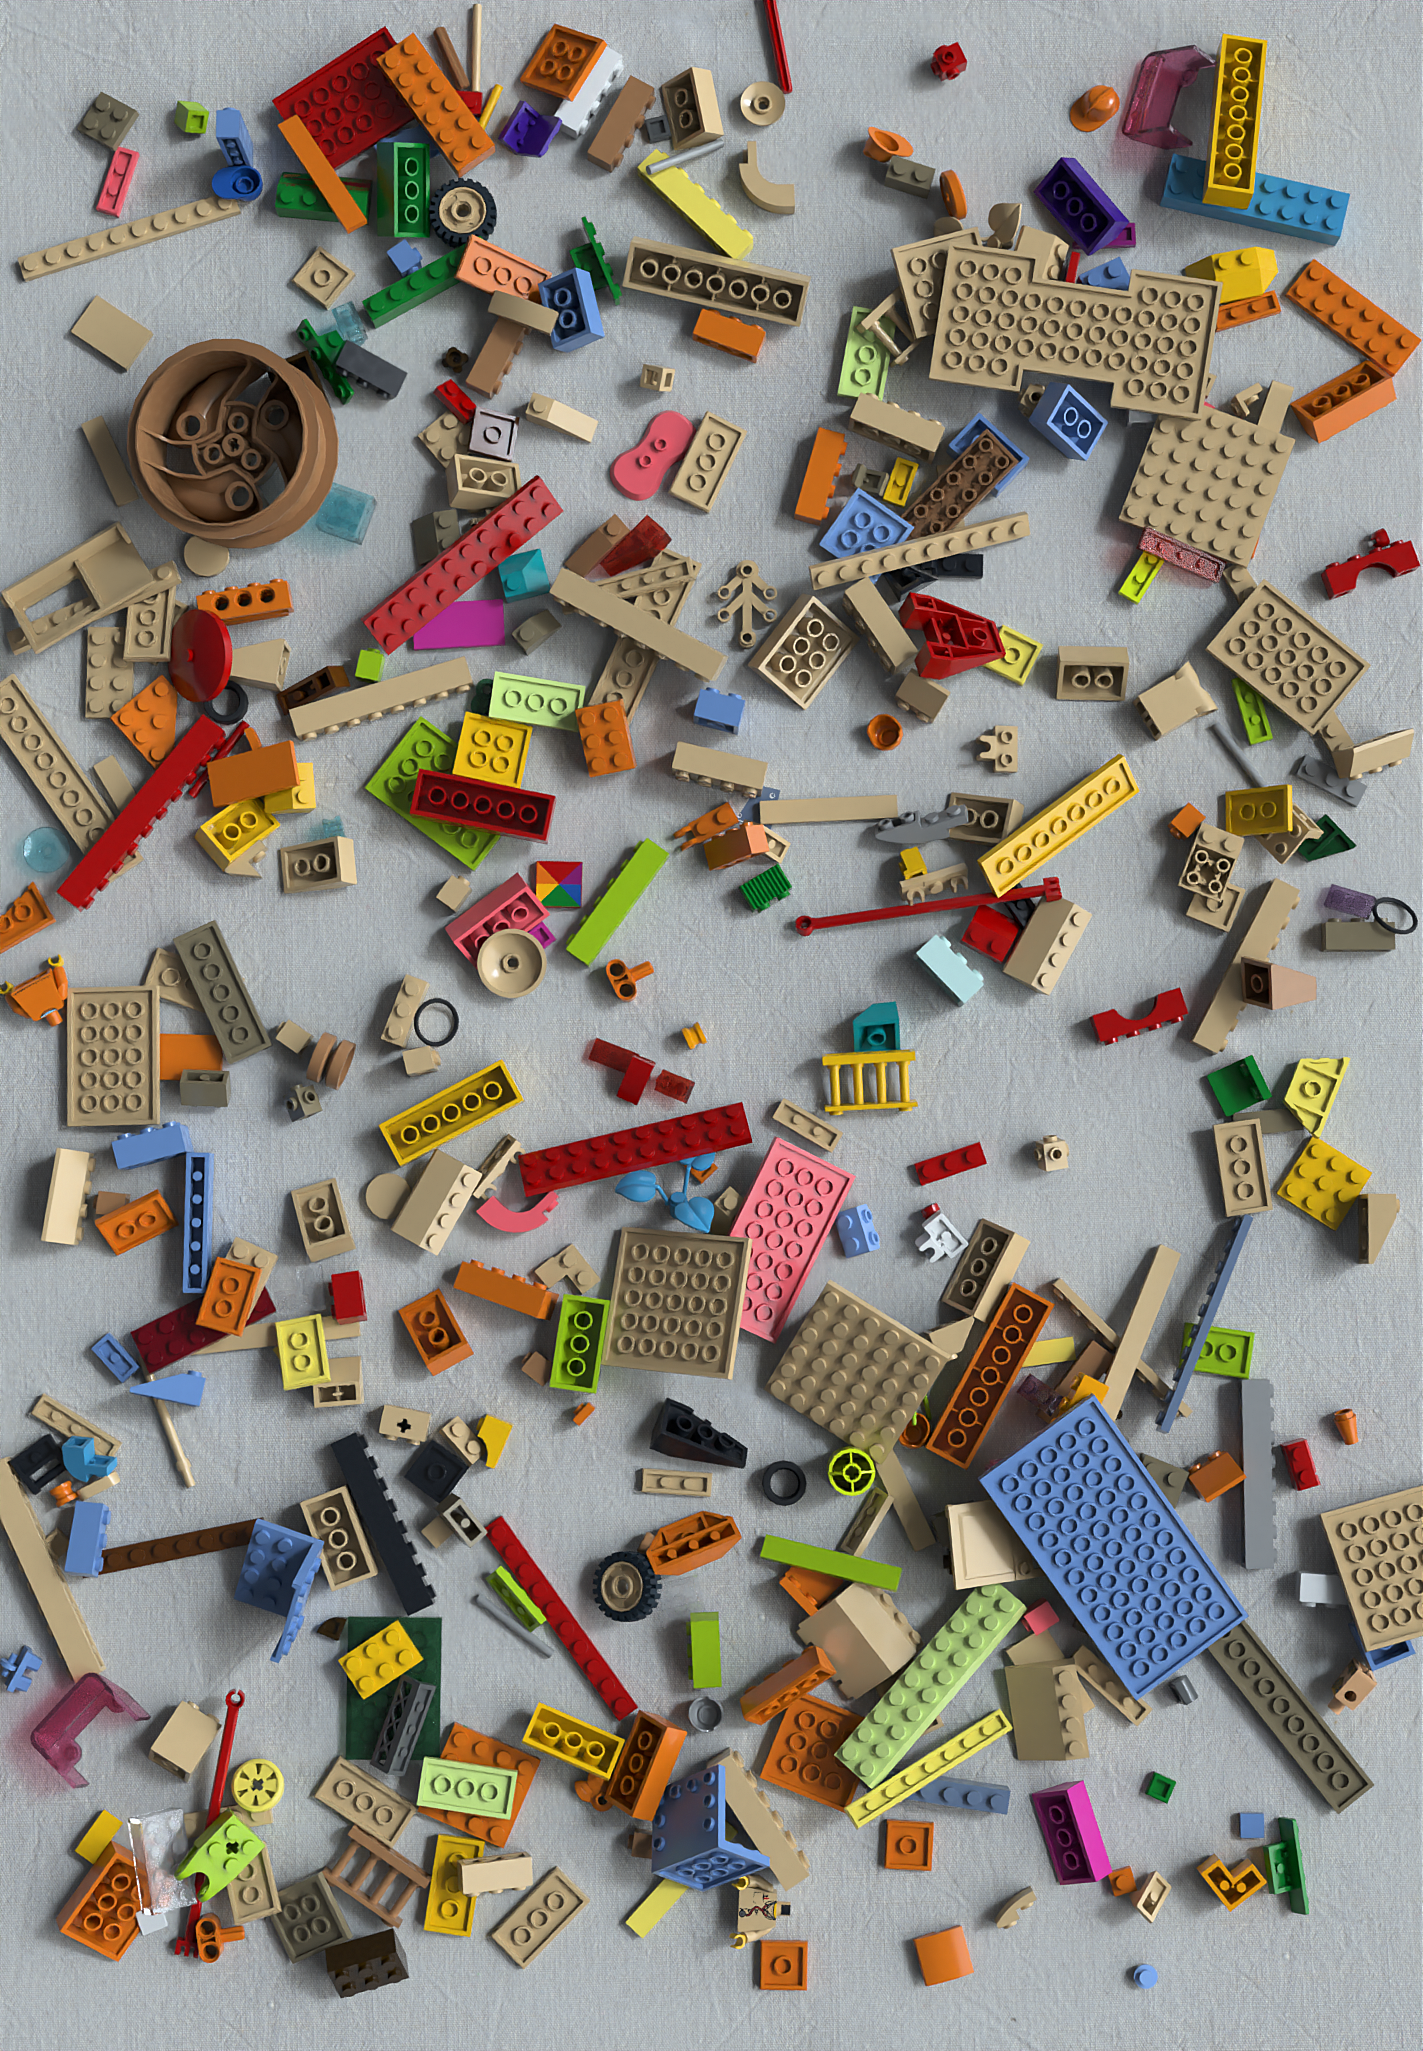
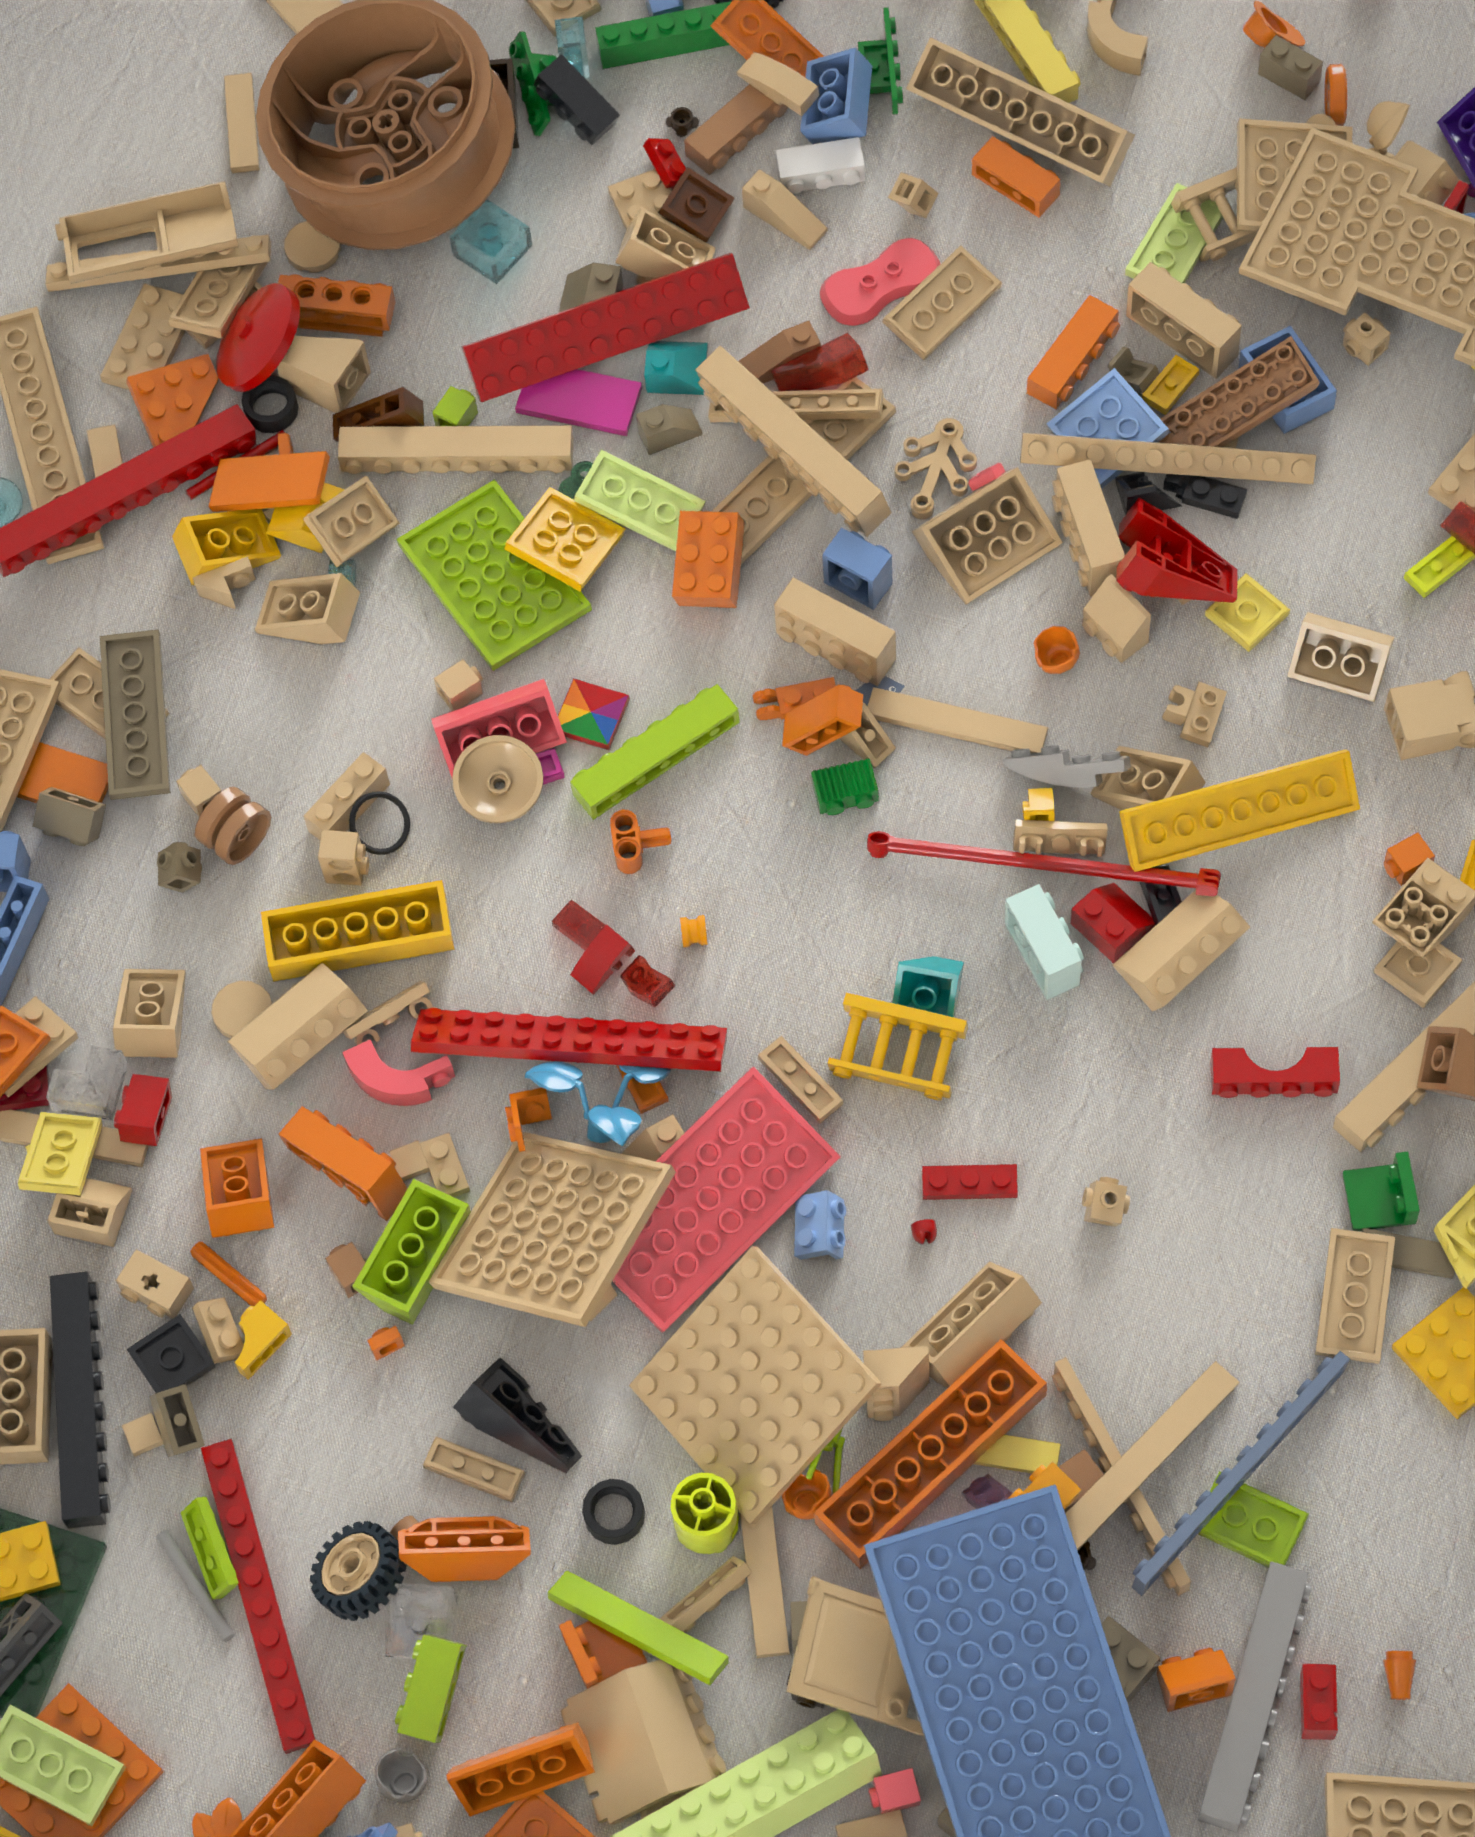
camera: 25 degrees right, 20 degrees down
(327, 787) = (351, 521): none -> tan tile
(454, 1397) = (227, 1274): none -> orange axle
(483, 806) = (530, 590): red brick -> none
(573, 1741) = (214, 1747): yellow slope -> none
(576, 370) = (821, 165): none -> white brick
(620, 1209) = (526, 1108): none -> orange bracket
(789, 603) = (986, 476): none -> coral tile
(940, 1237) = (927, 1263): white plate -> none
(1068, 421) = (1398, 362): medium blue brick -> none

